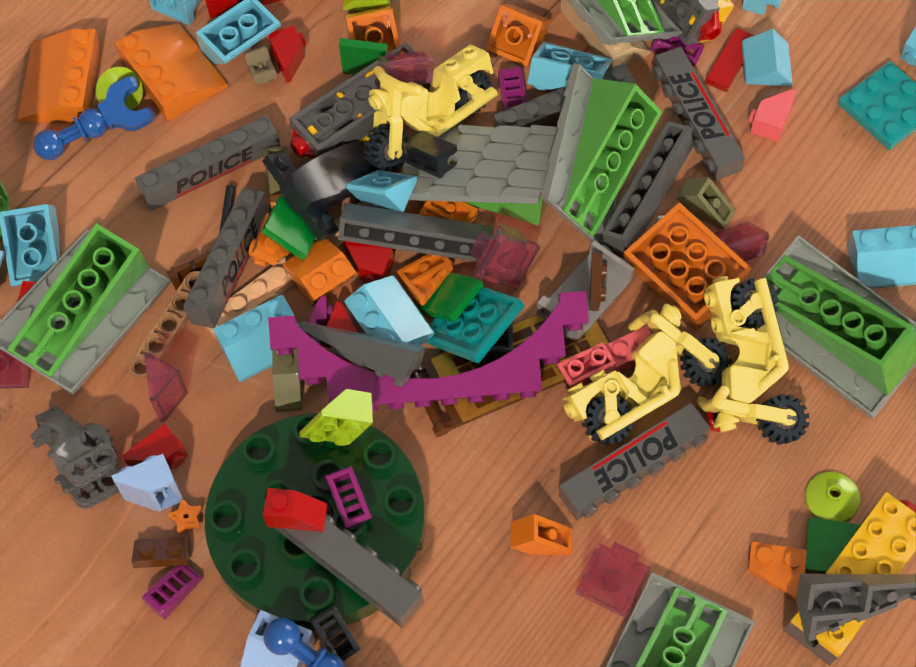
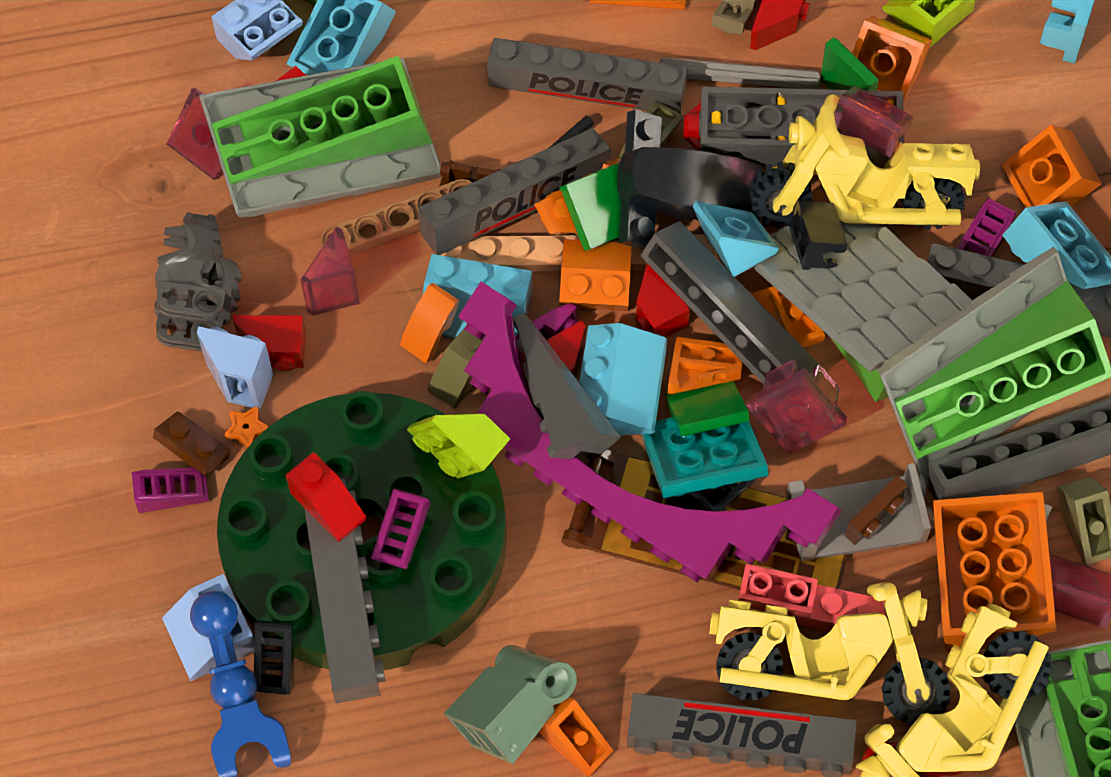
camera: 40 degrees right, 0 degrees up
(246, 370) = (428, 322): none -> orange slope
(300, 96) = (747, 73): none -> light grey axle
(497, 545) = (511, 701): none -> sand green piece

